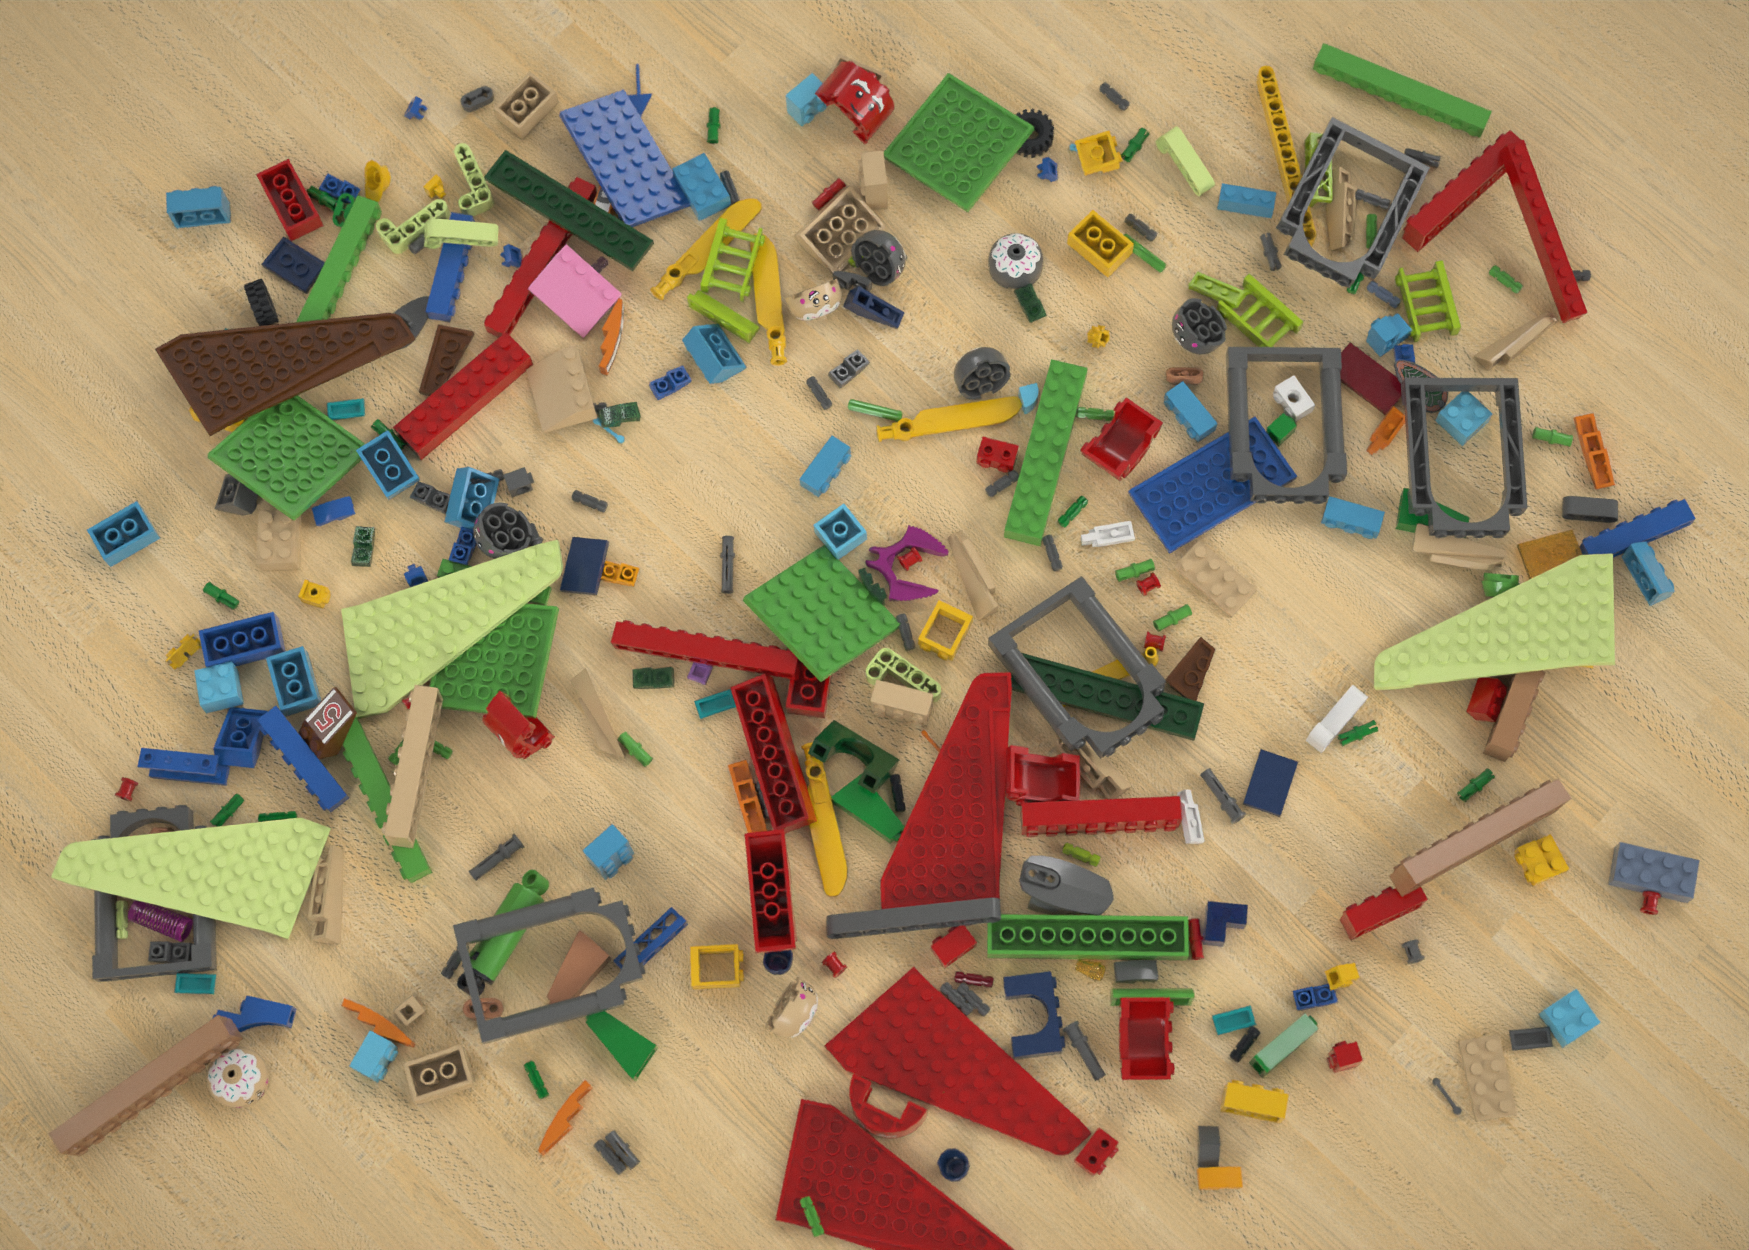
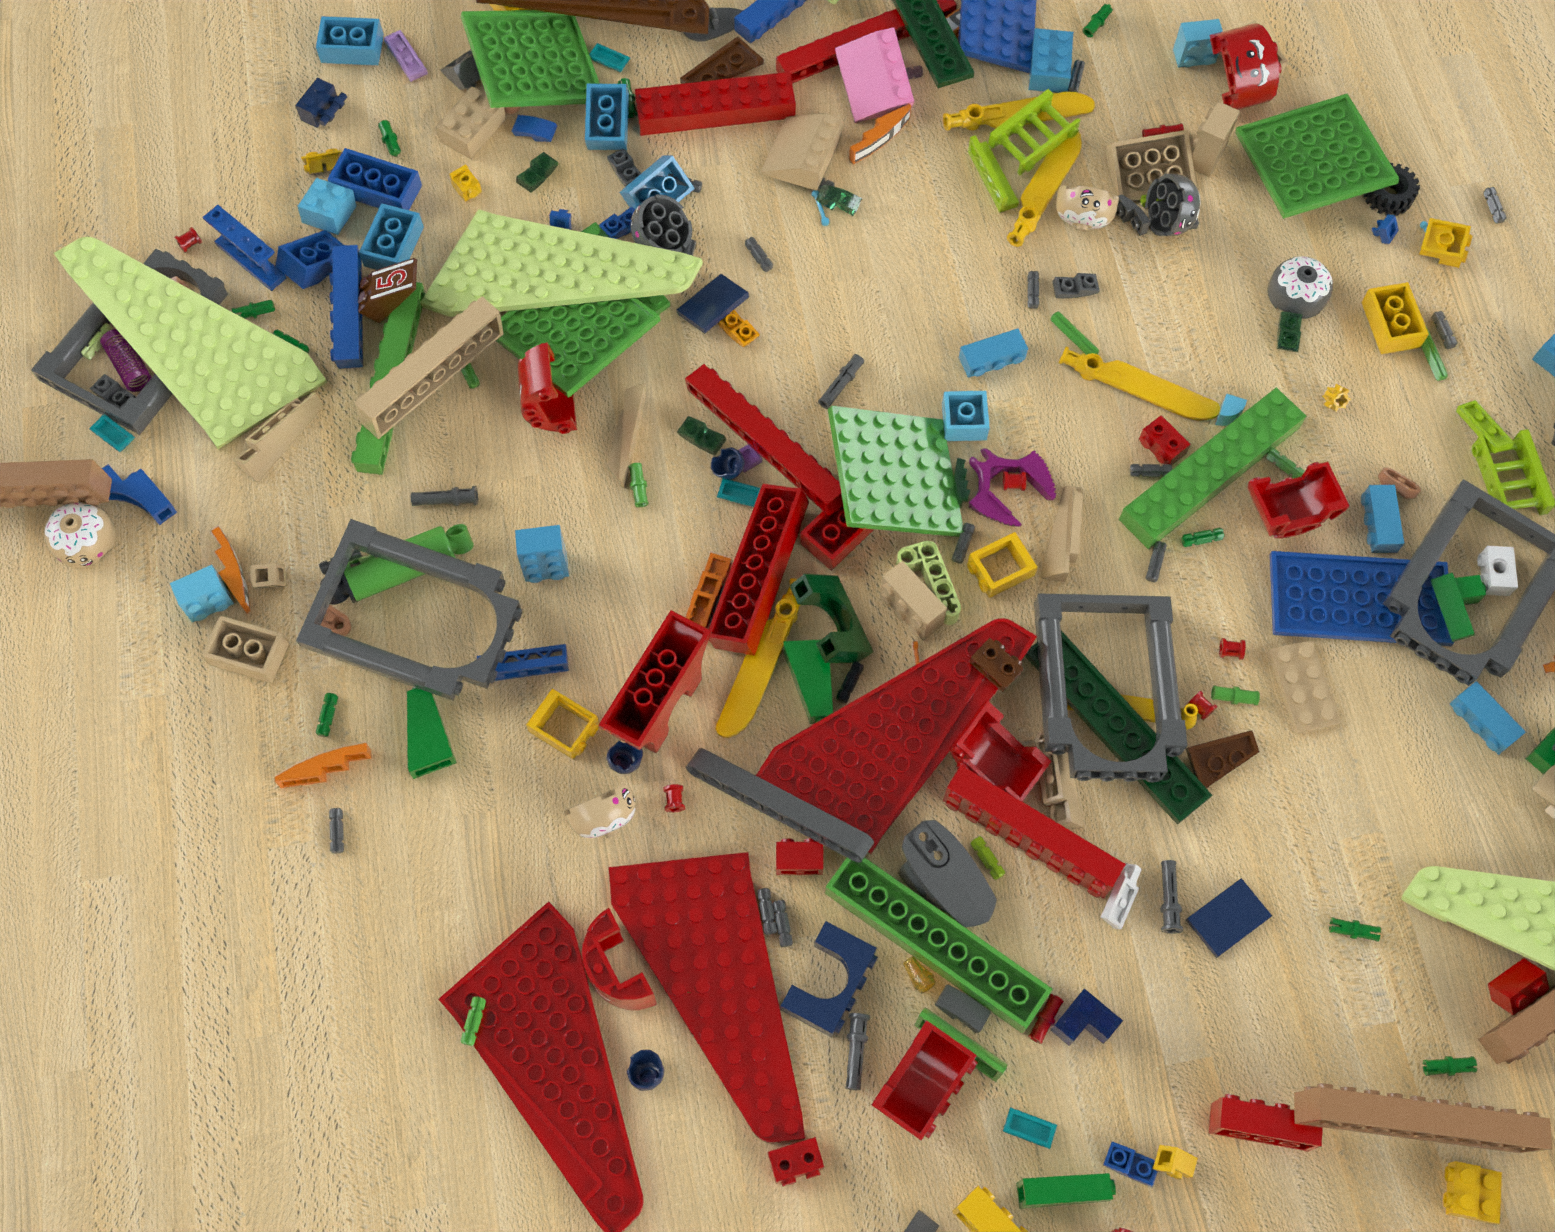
camera: 30 degrees right, 5 degrees down
(138, 604) = (320, 103): none -> dark blue brick
(175, 515) = (405, 55): none -> lavender tile
(512, 256) = (842, 19): blue tile -> none
(519, 482) = (708, 200): dark grey brick -> none
(579, 969) = (440, 641): nougat slope -> none
(613, 1138) = (352, 832): dark grey pin -> none
(669, 384) = (906, 202): blue slope -> none
(691, 688) = (728, 464): none -> dark blue hair
(713, 353) = (961, 198): dark azure slope -> none
(873, 308) = (1135, 247): dark blue slope -> none
(973, 979) = (797, 904): dark red axle -> none
(980, 372) = (1199, 358): dark grey cylinder -> none
(997, 713) = (997, 664): none -> reddish brown brick
(1109, 534) = (1223, 579): white hinge -> none
(1134, 144) = (1487, 256): green pin -> none
(1135, 570) = (1227, 627): bright green pin -> none
(1186, 160) = (1531, 295): yellowish green beam -> none
(1198, 327) = (1443, 445): dark grey cylinder -> none
(1244, 1044) = (1024, 1160): black axle -> none
(1280, 450) = (1452, 607): none -> green tile
(1336, 719) = (1322, 905): white beam -> none
(1413, 951) = (1268, 1191): dark grey bush -> none

